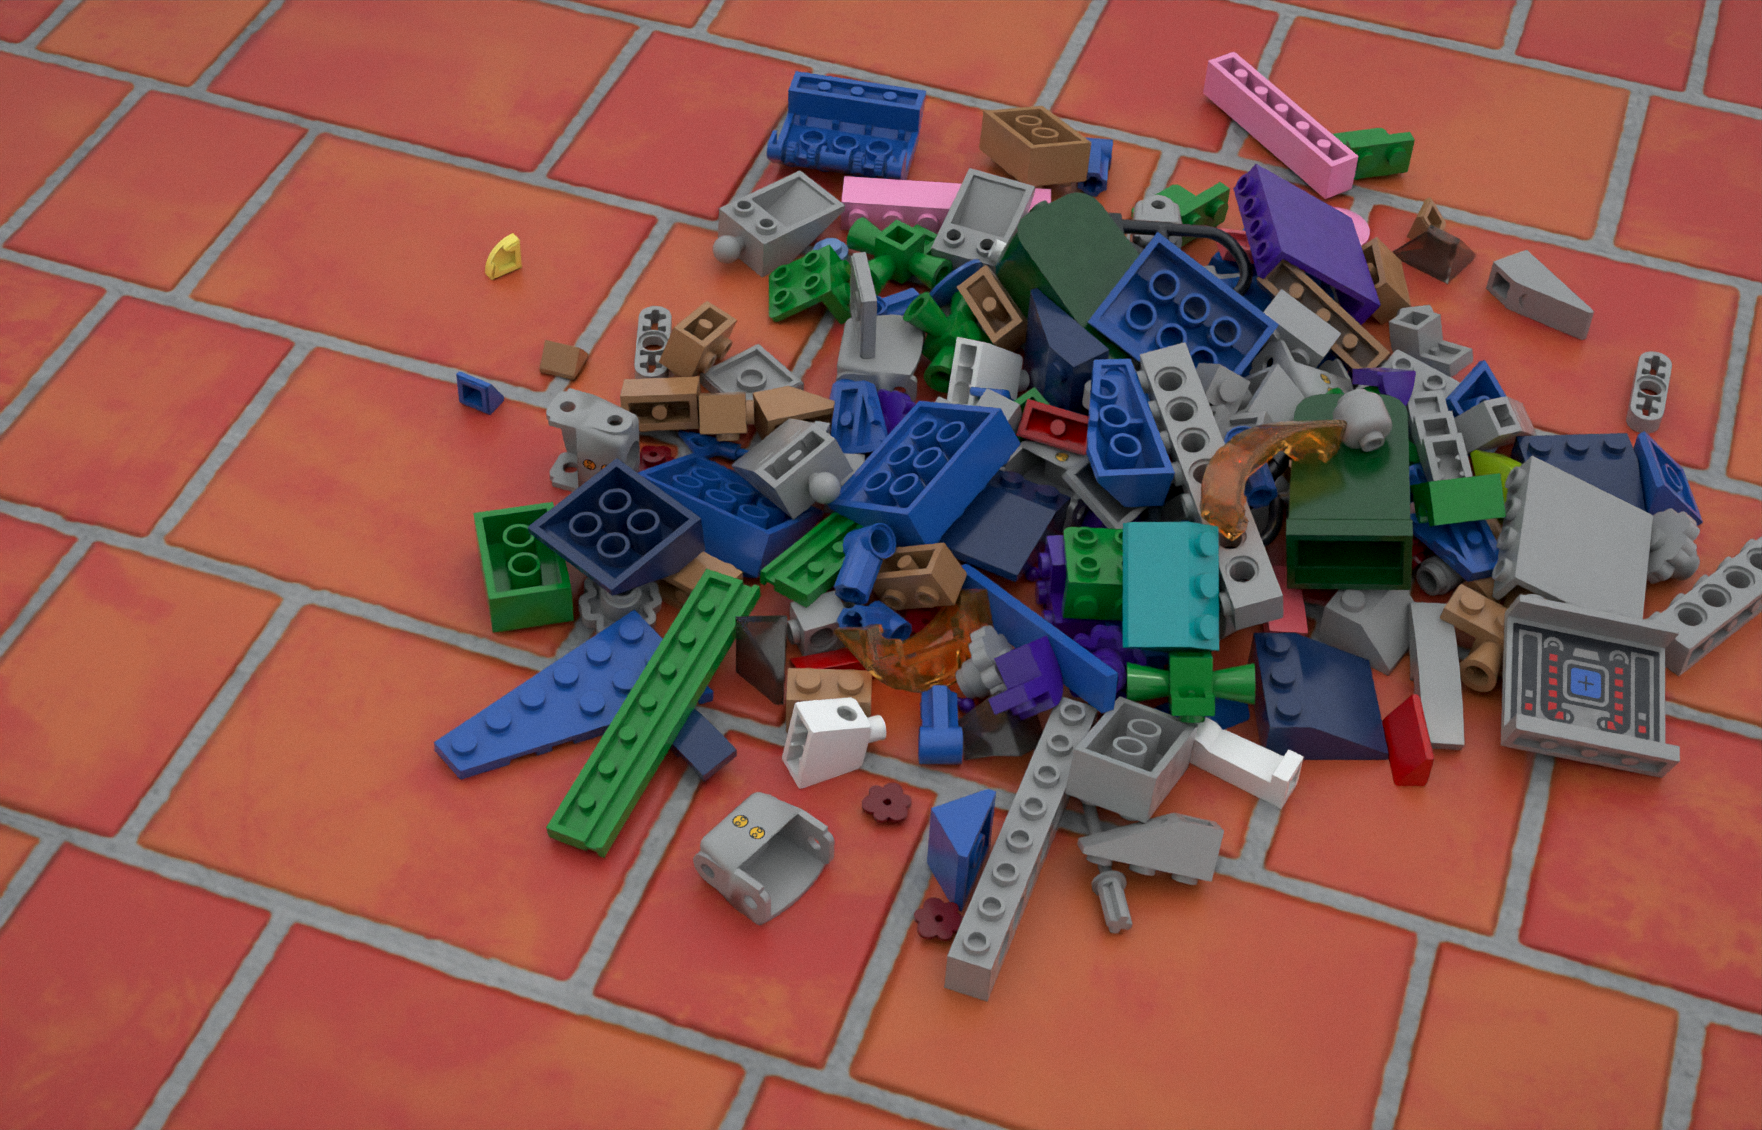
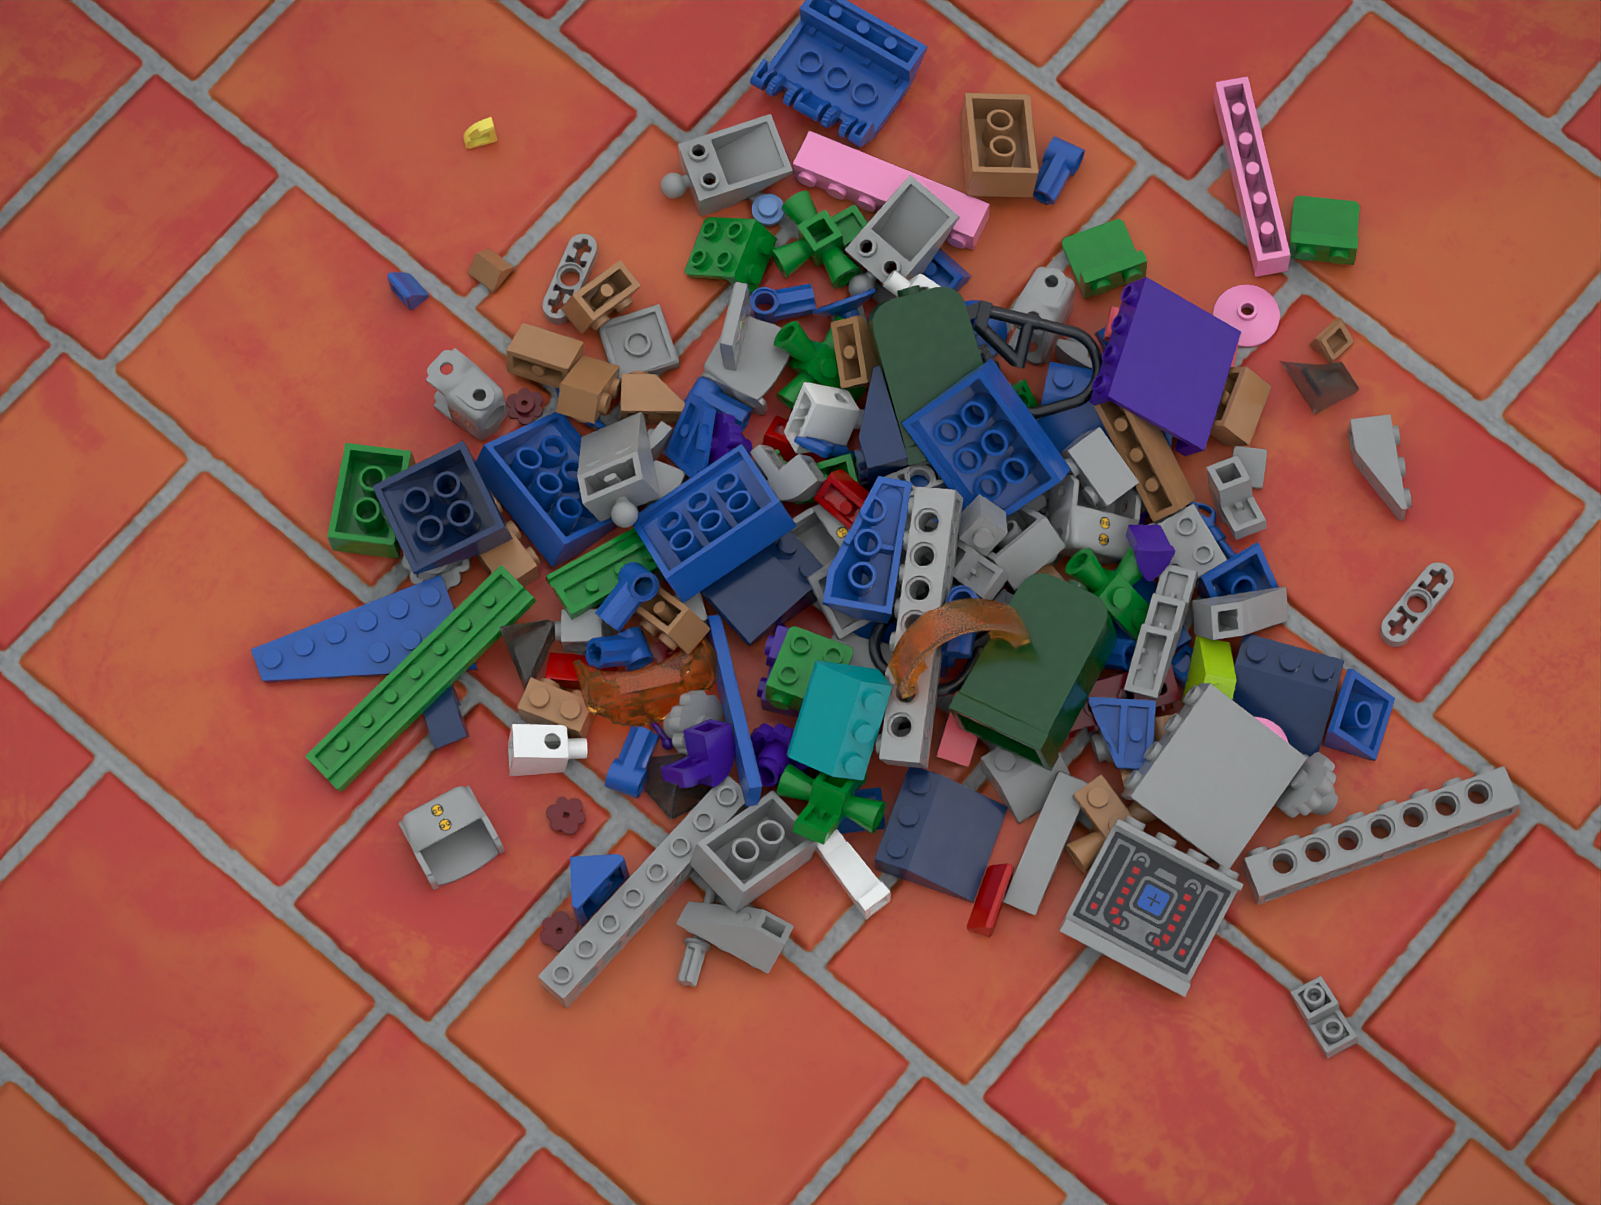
camera: 30 degrees right, 25 degrees up
(1365, 418) = (1055, 626): light grey head -> none
(1459, 500) = (1130, 702): green hinge -> none

